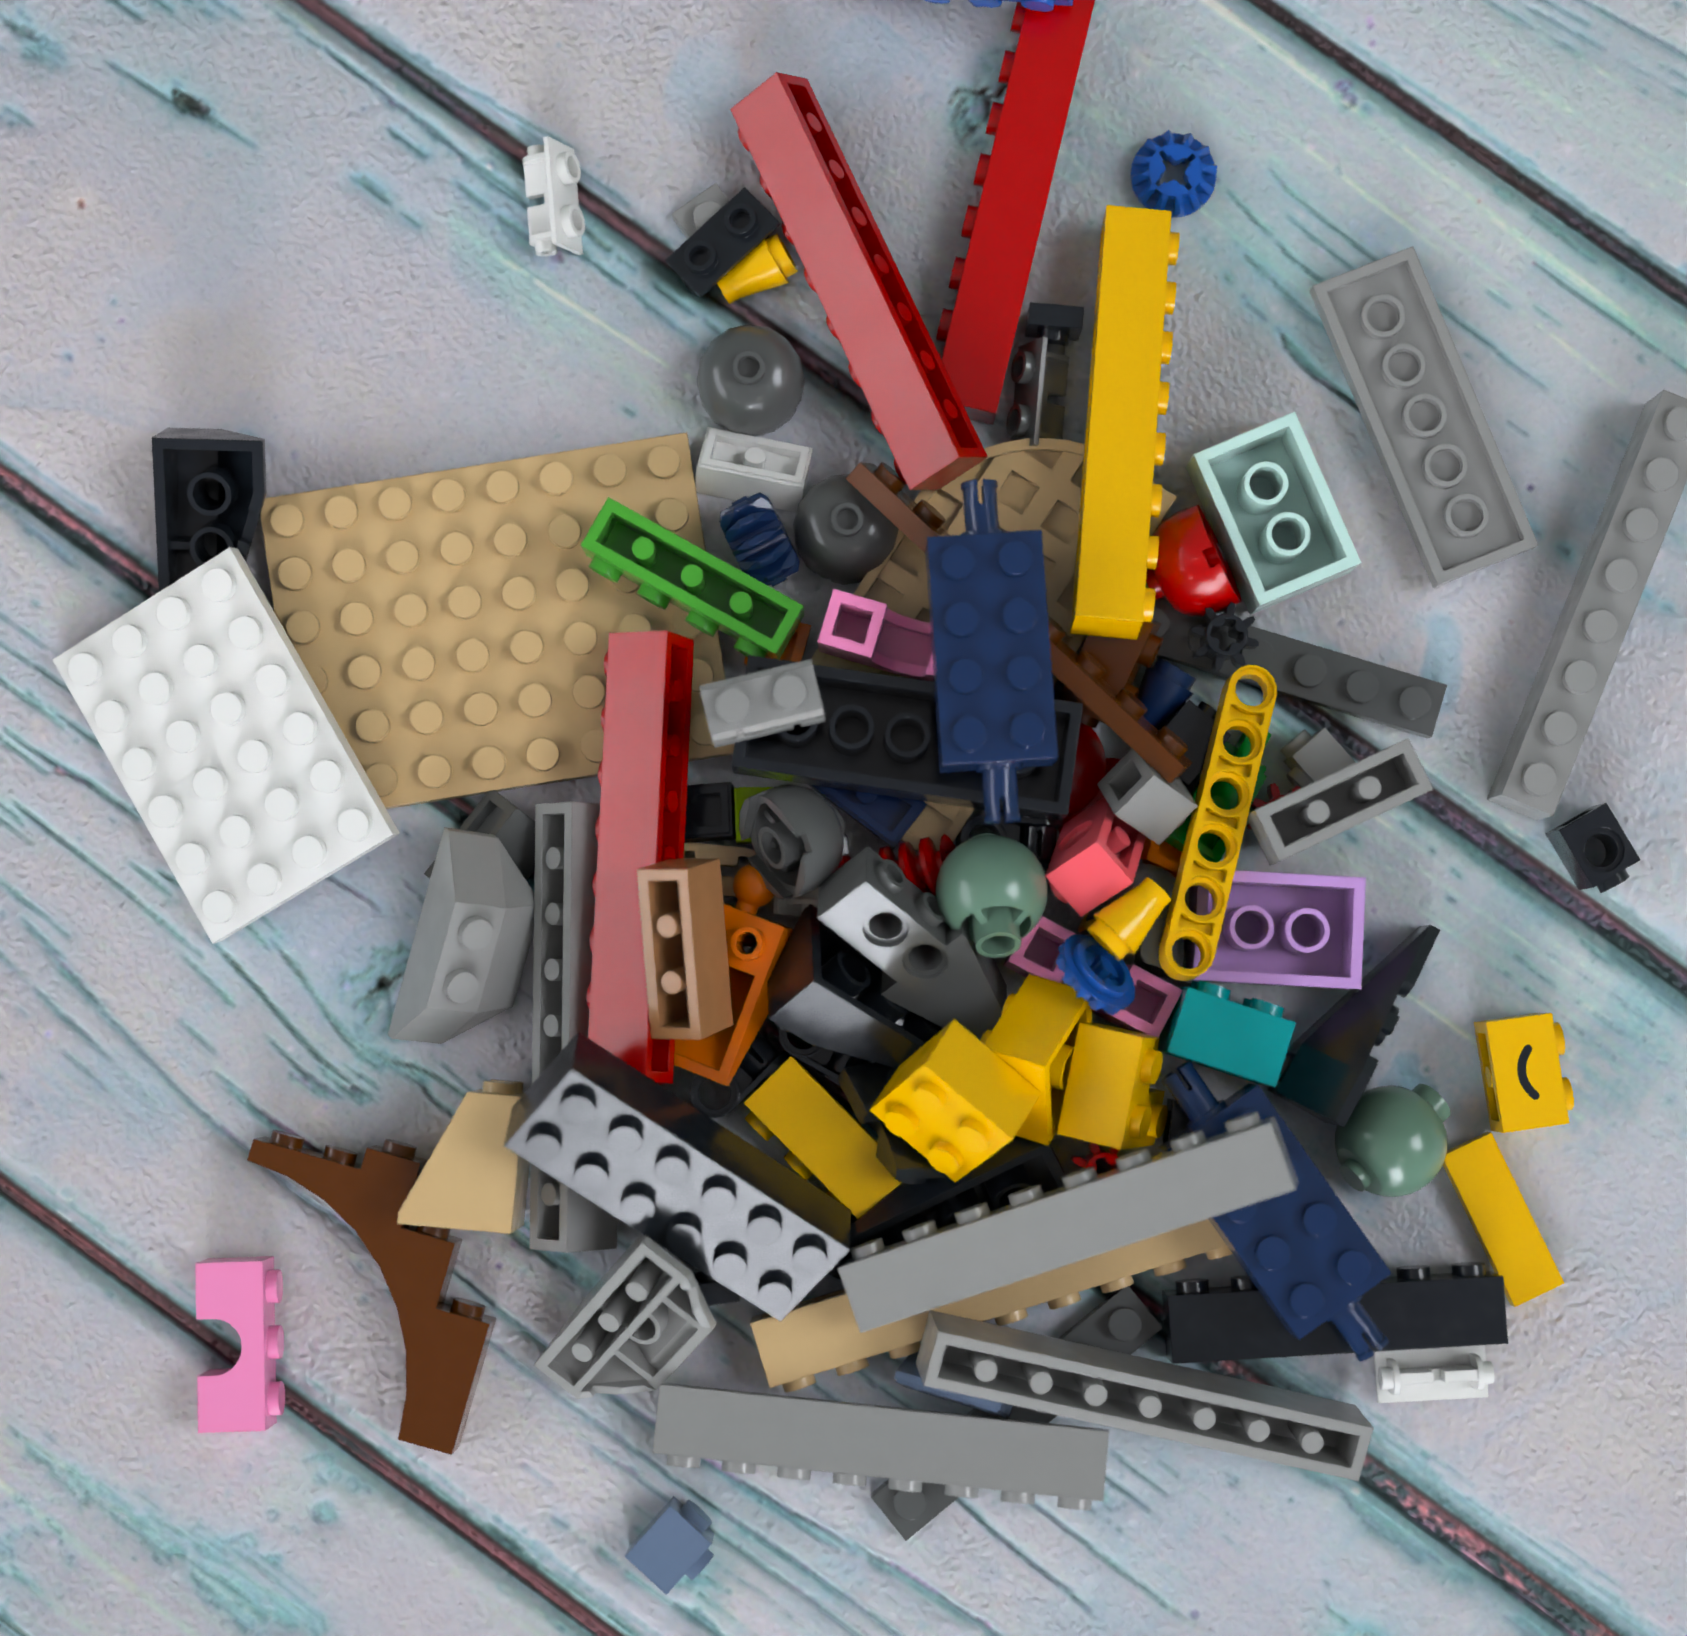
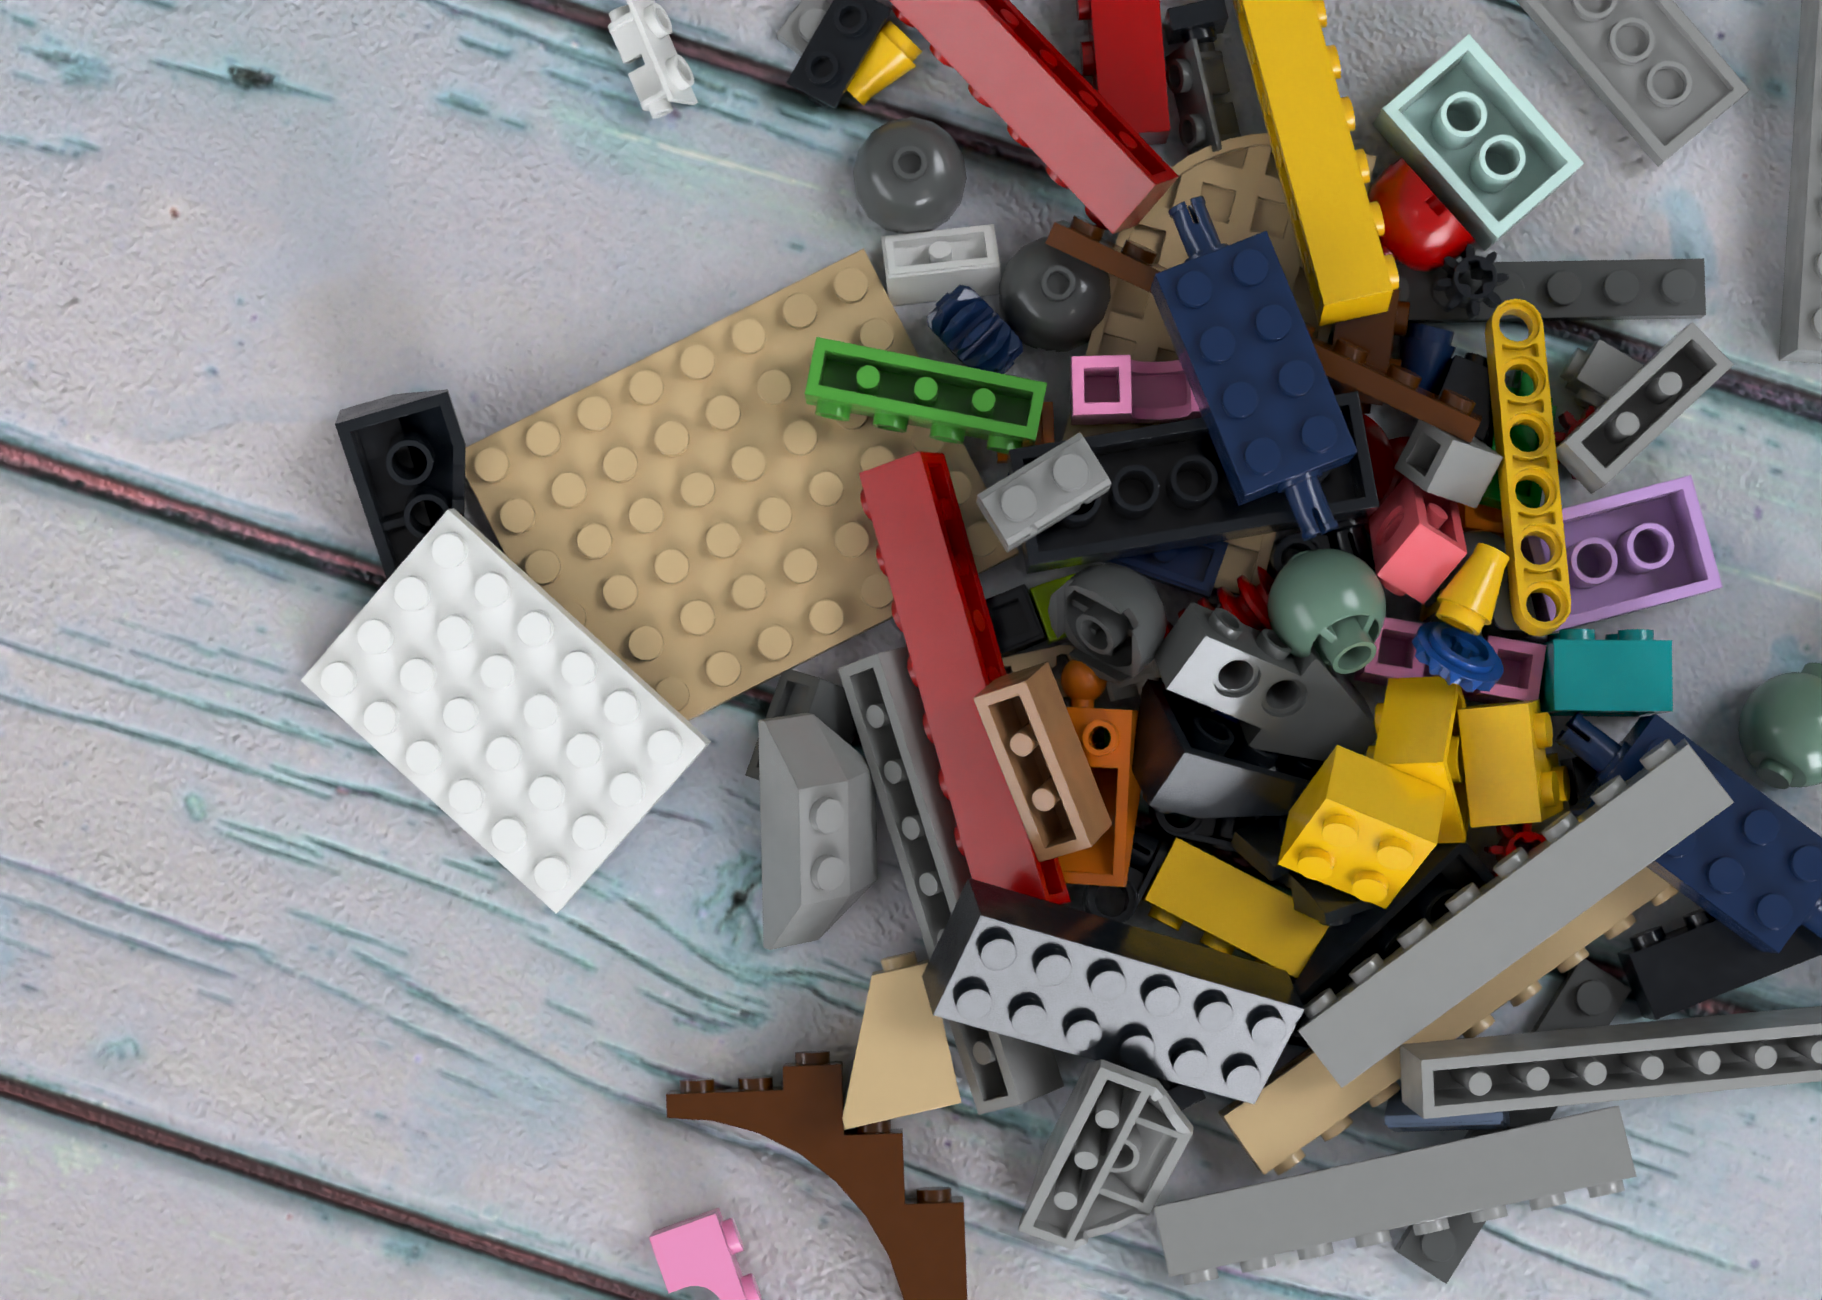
camera: 20 degrees left, 0 degrees up
(1332, 1058) = (1715, 660): black wedge -> none

